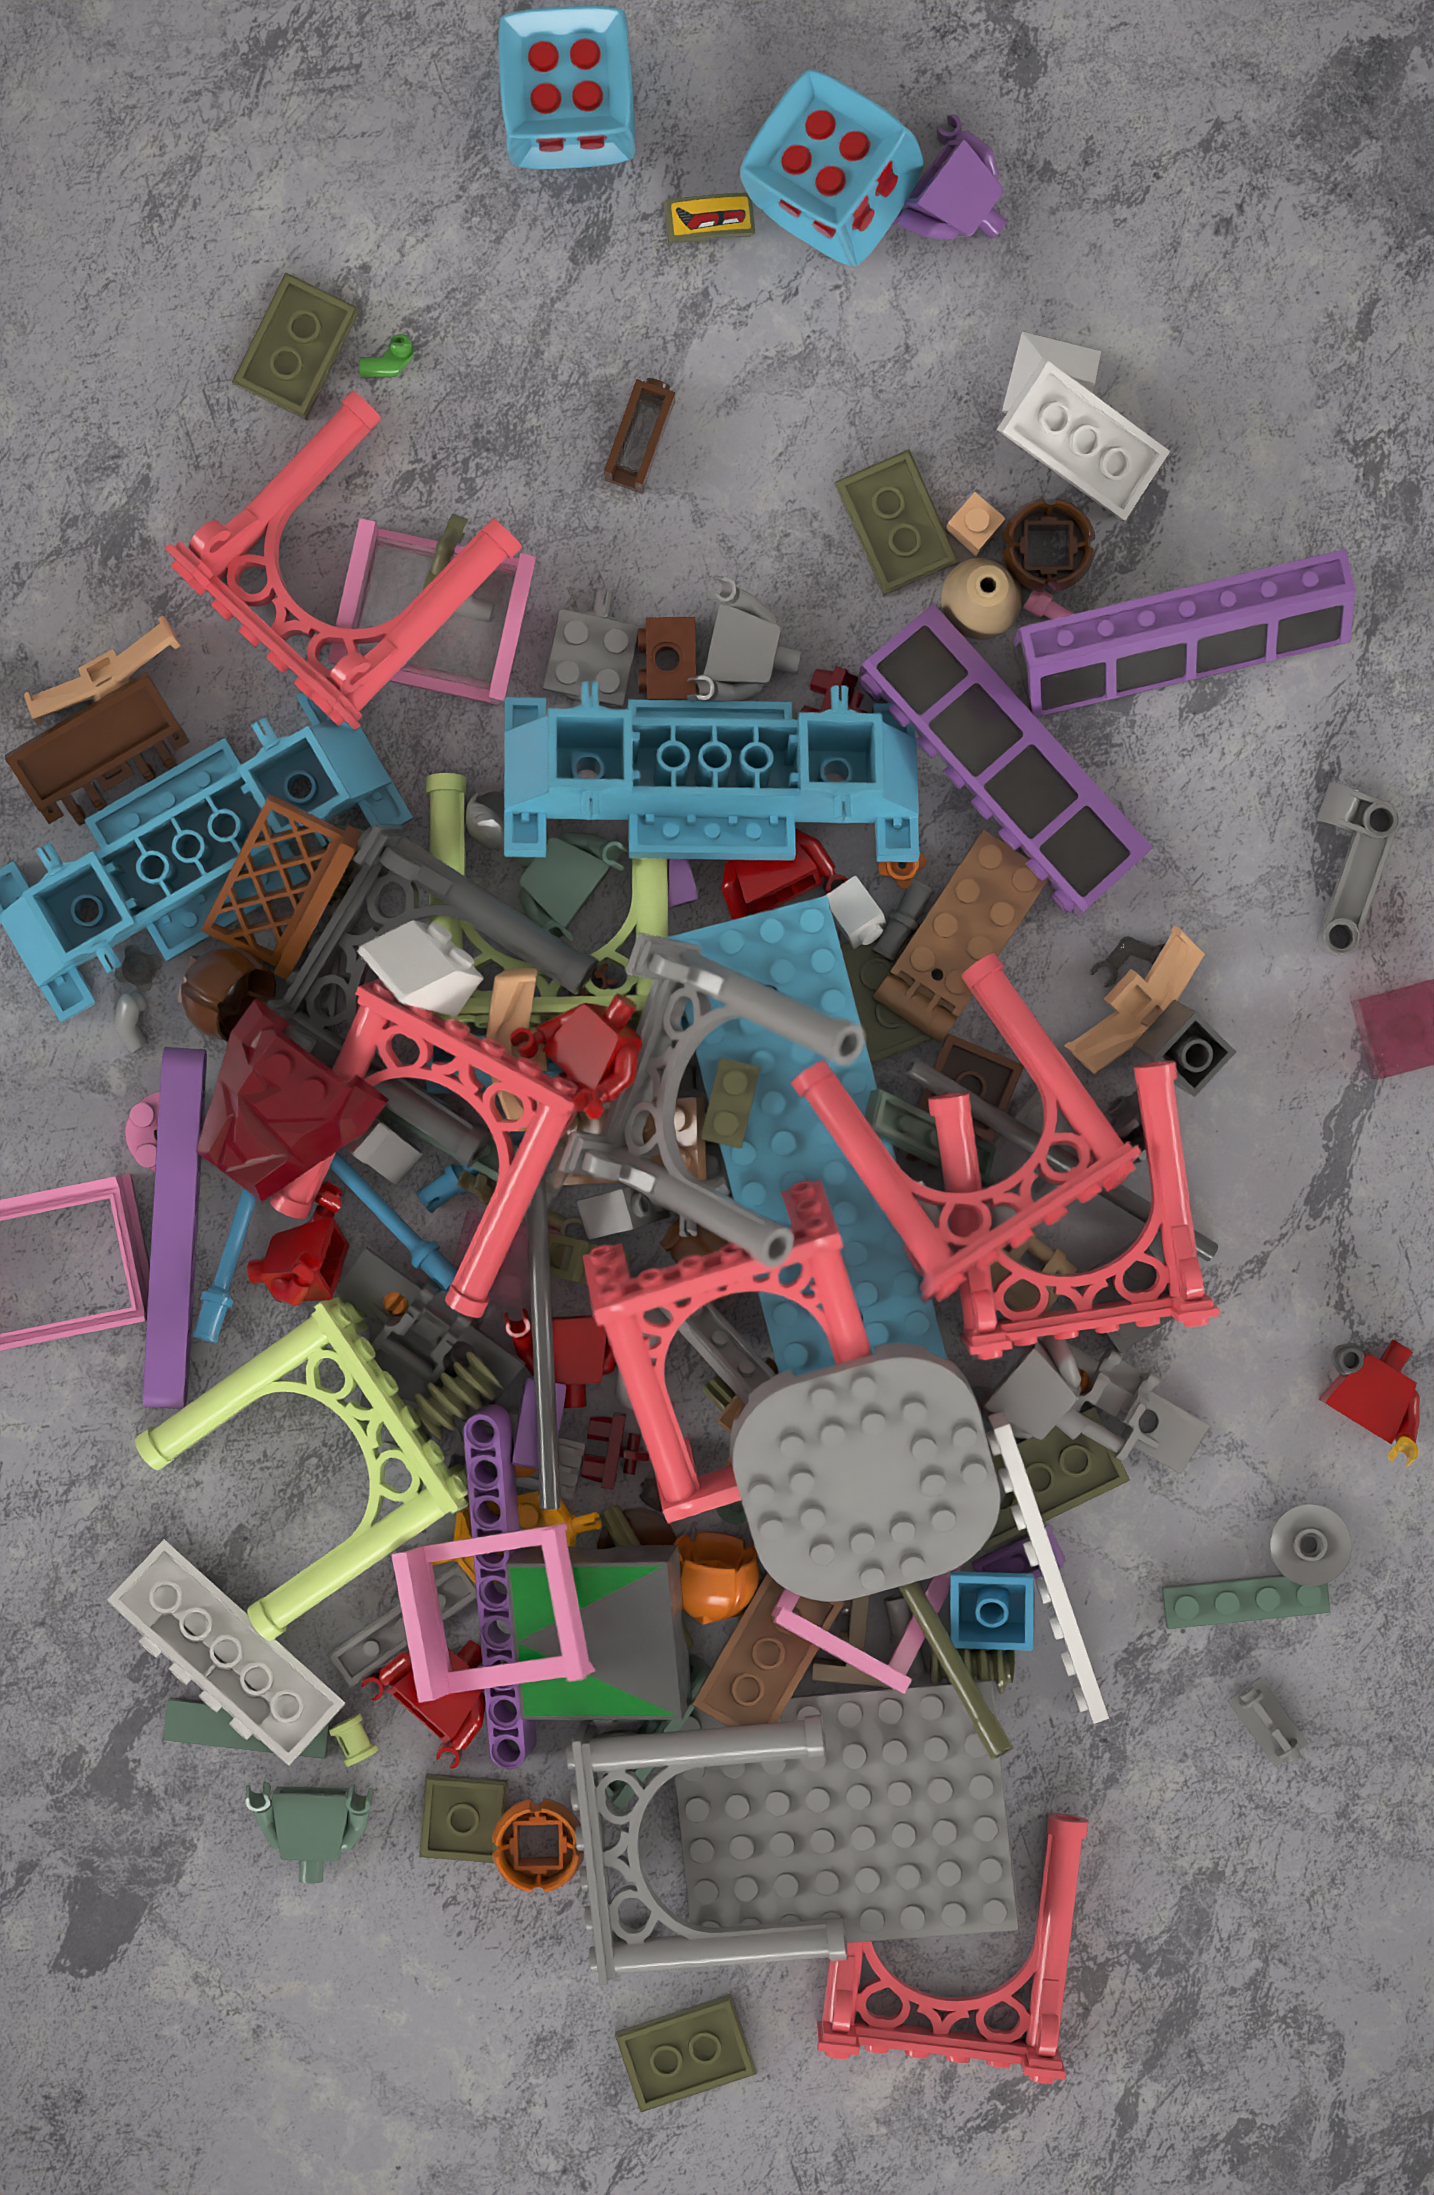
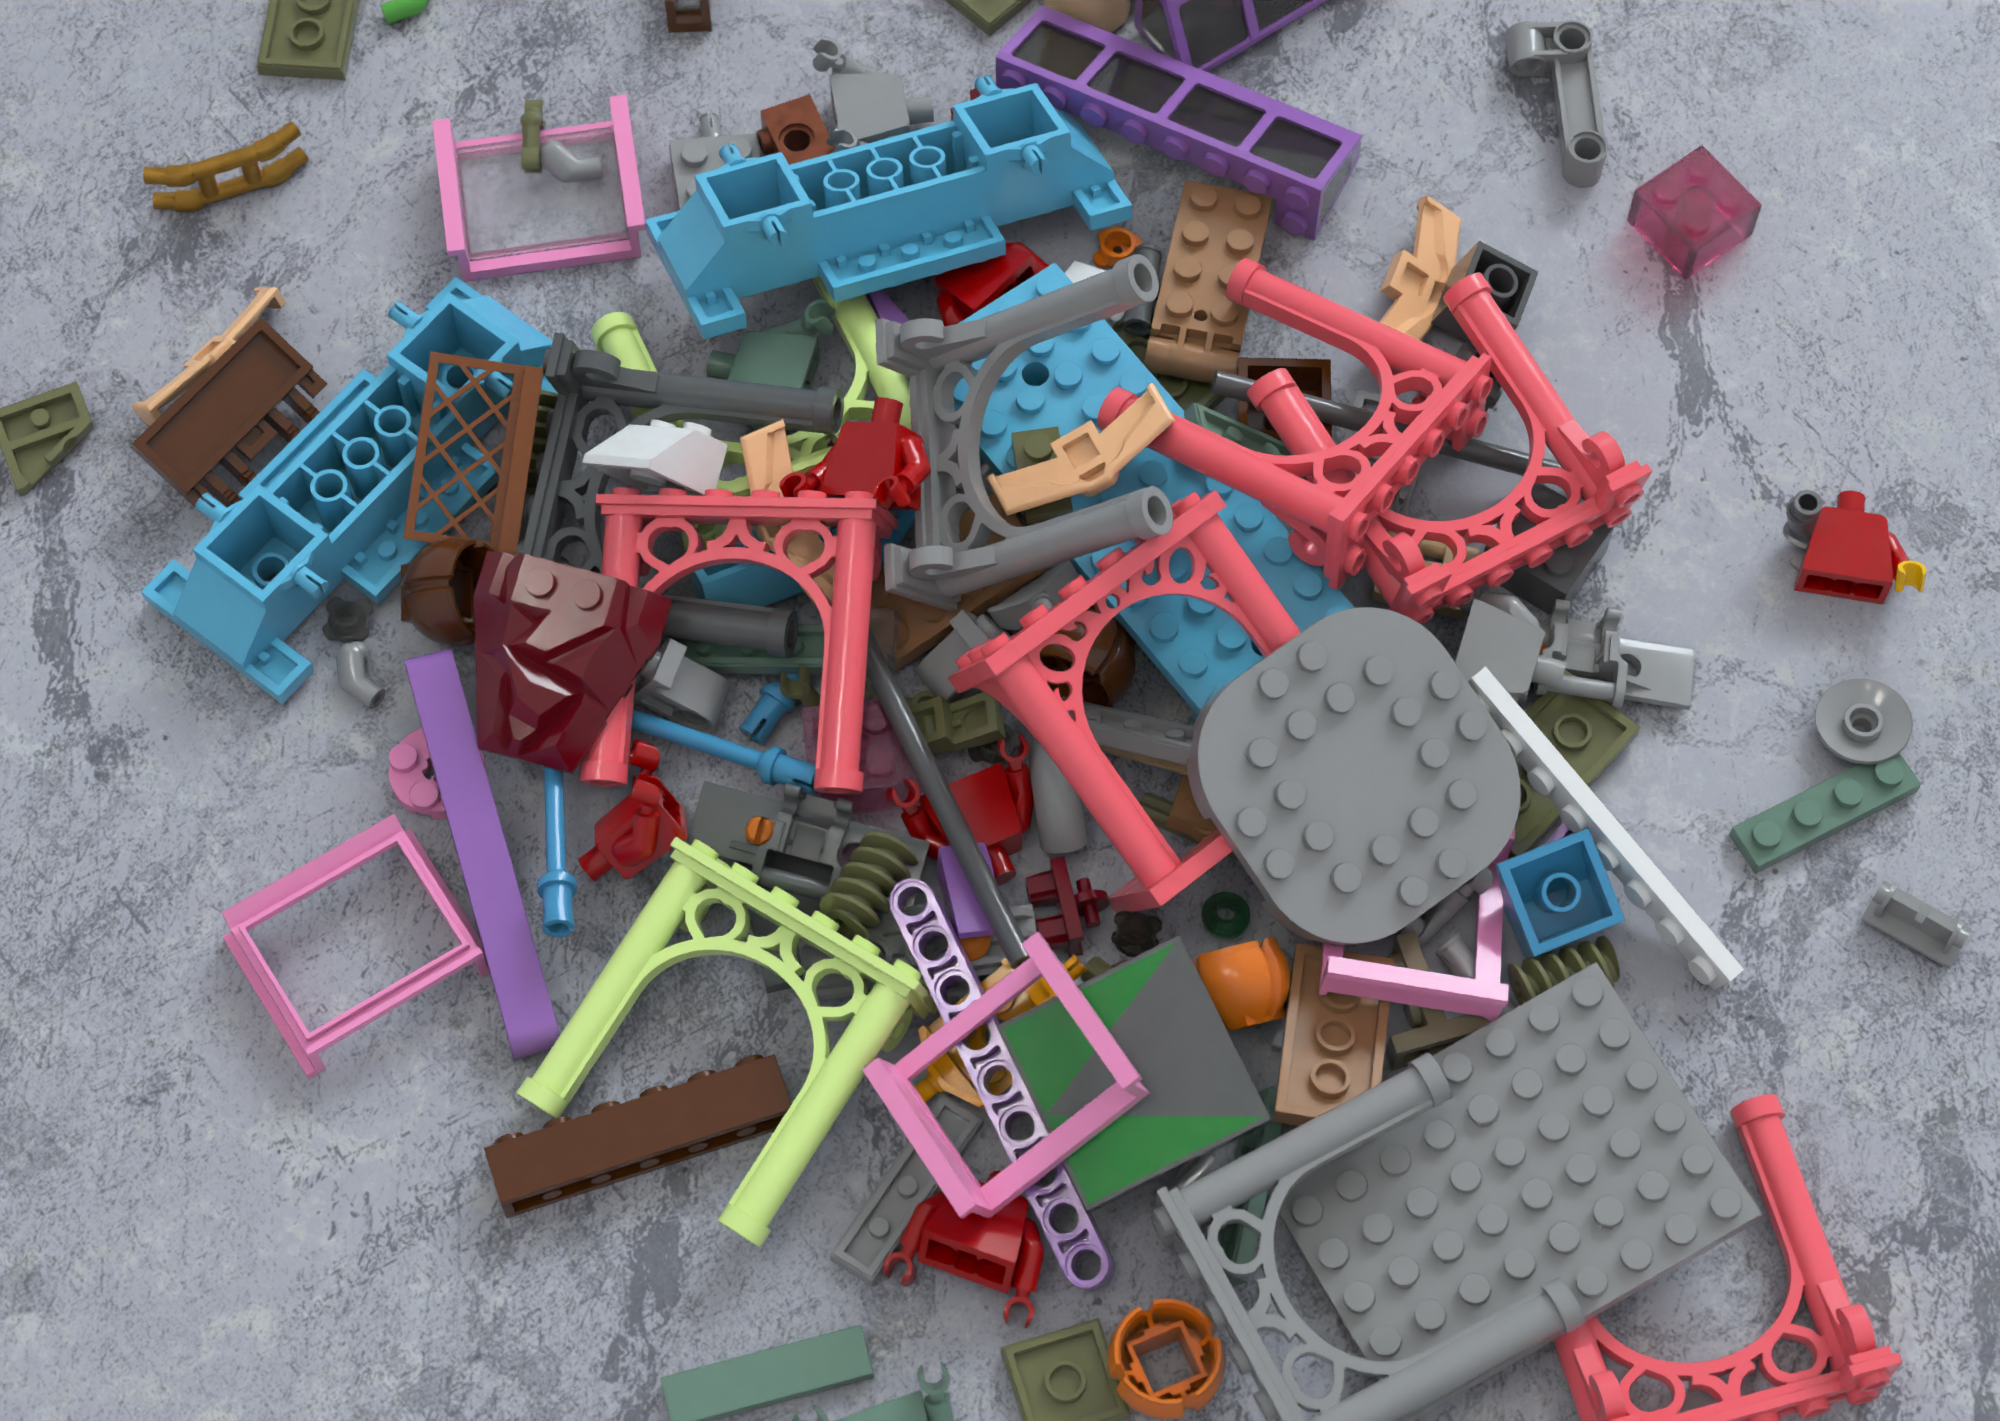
camera: 20 degrees left, 25 degrees down
(206, 497) = (205, 171): none -> pearl gold piece
(218, 1508) = (638, 1135): none -> reddish brown brick
(224, 1654) = (709, 1290): white plate -> none
(353, 1740) = (899, 1336): yellowish green bush -> none
(355, 678) = (459, 243): coral arch -> none
(486, 819) = (676, 346): light grey hair -> none
(765, 1121) = (1085, 458): none -> light nougat plate
(984, 1721) = (1609, 989): olive piece -> none
(1126, 947) = (1379, 246): clear smoke arm -> none

